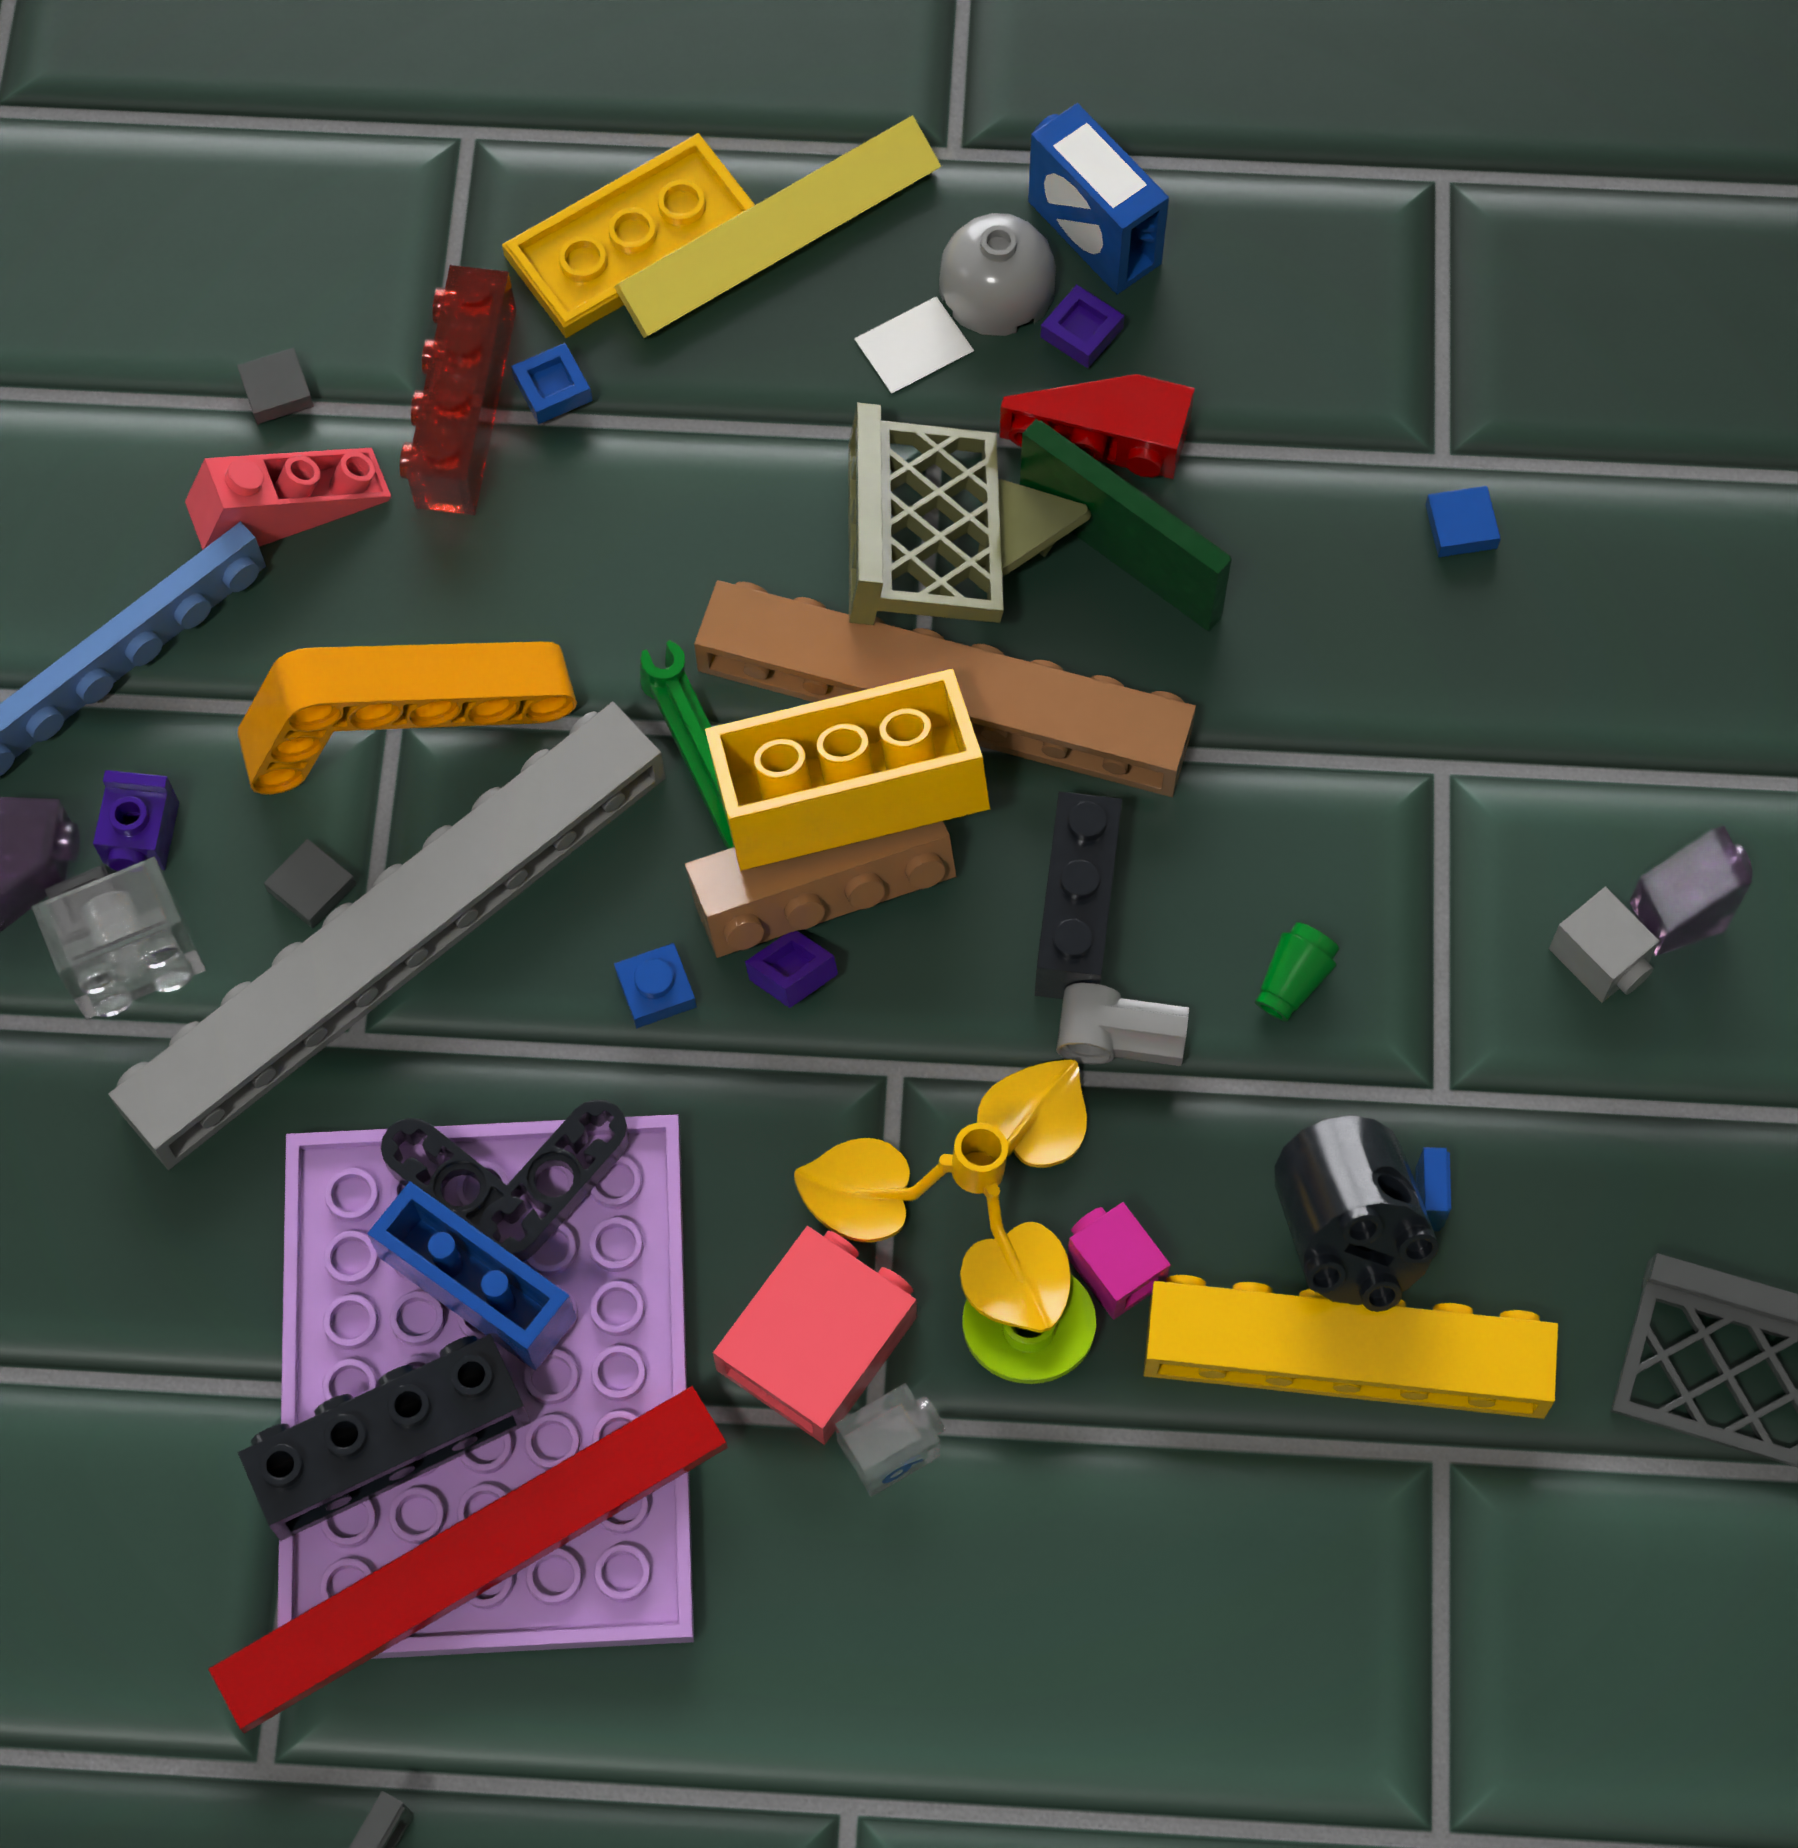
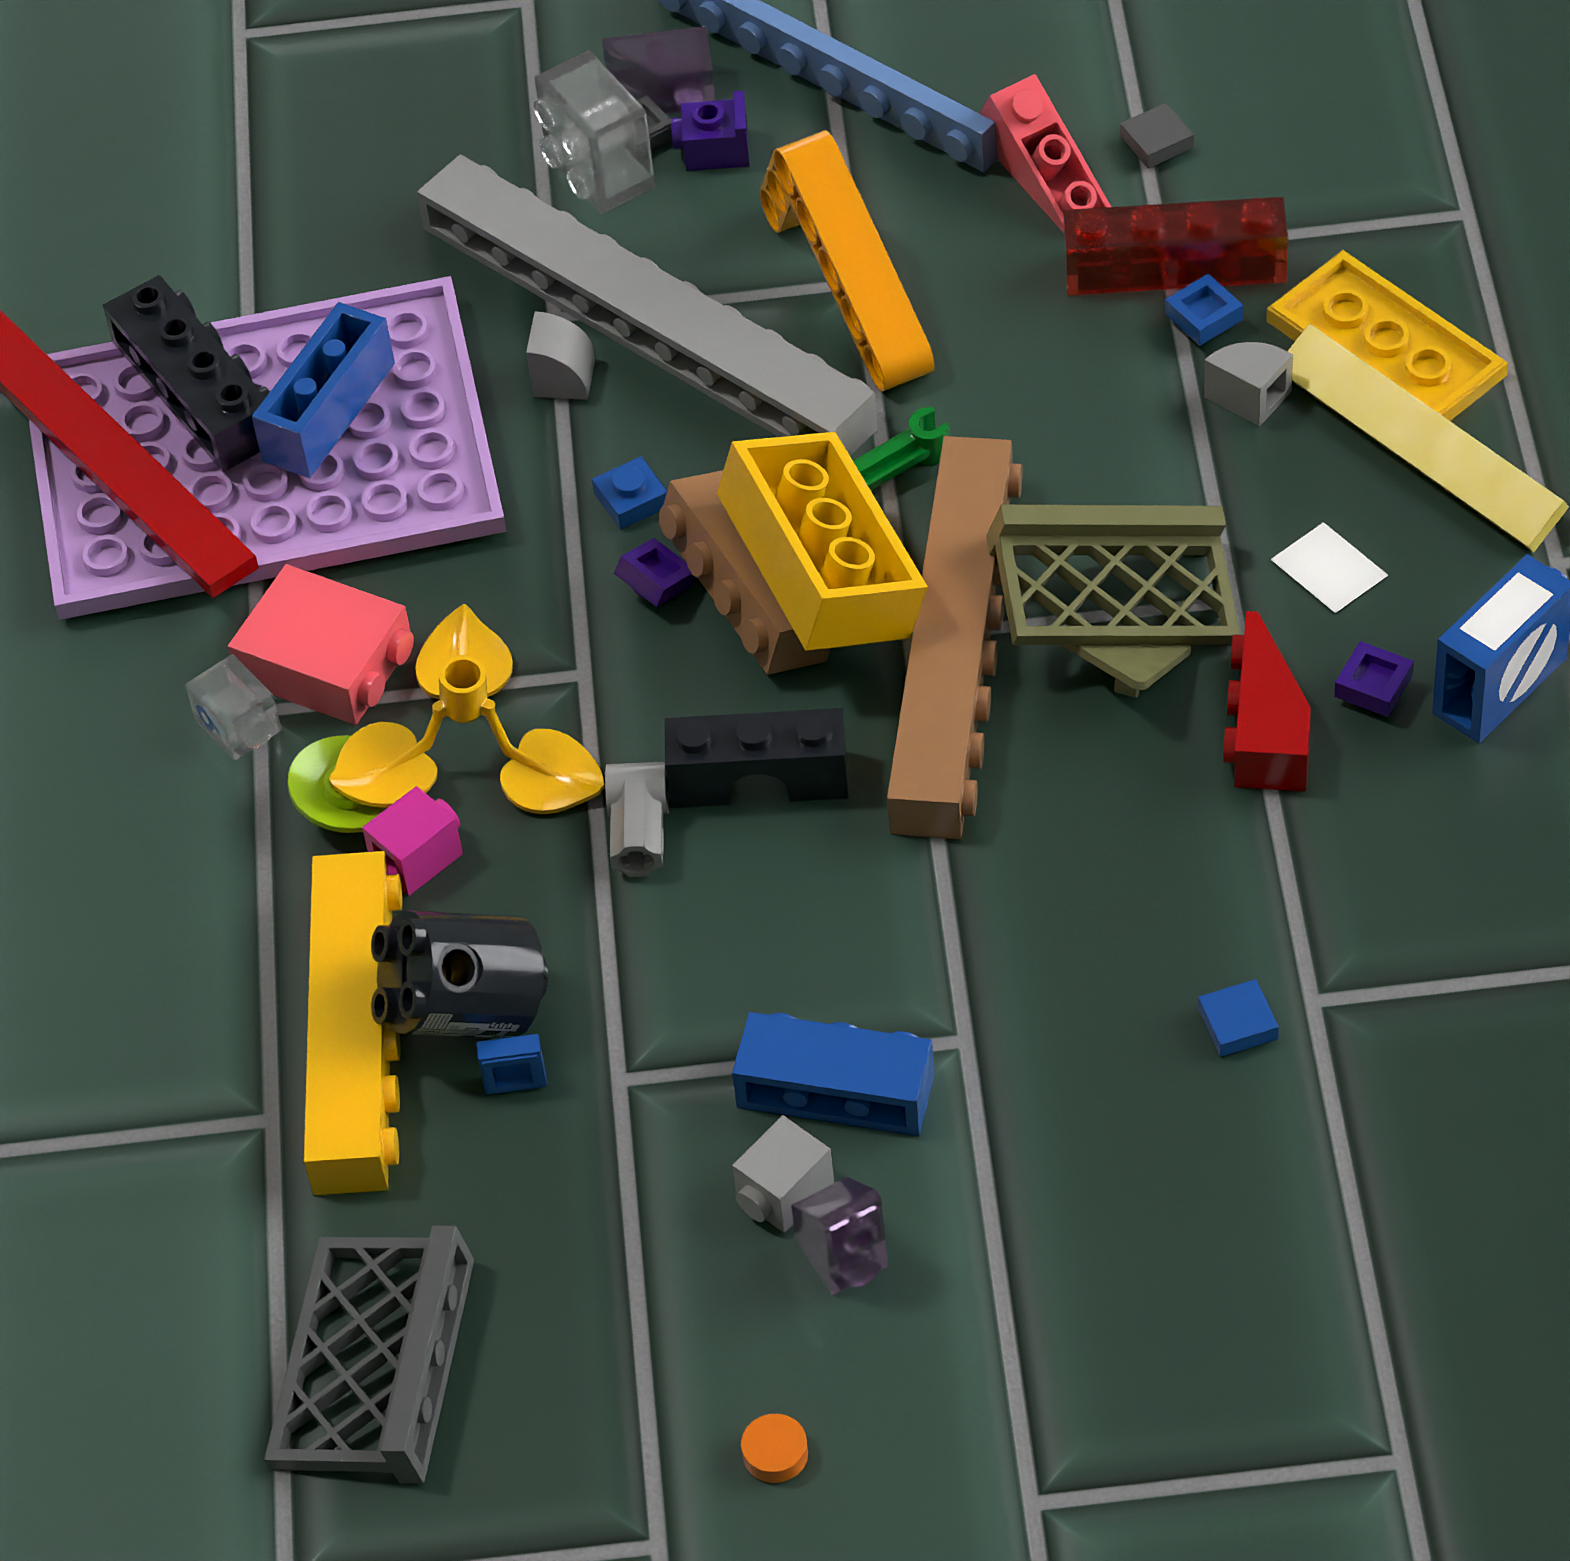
camera: 85 degrees right, 15 degrees down
(310, 883) = (686, 253): dark grey tile -> none
(447, 1033) = (559, 358): none -> light grey brick
(502, 1201) = (410, 416): black beam -> none
(669, 357) = (1249, 379): none -> light grey brick
(997, 274) = (1412, 602): light grey cylinder -> none
(1130, 526) = (1138, 722): dark green tile -> none
(1296, 970) = (718, 937): green cone -> none
(1485, 880) = (834, 1073): none -> blue brick

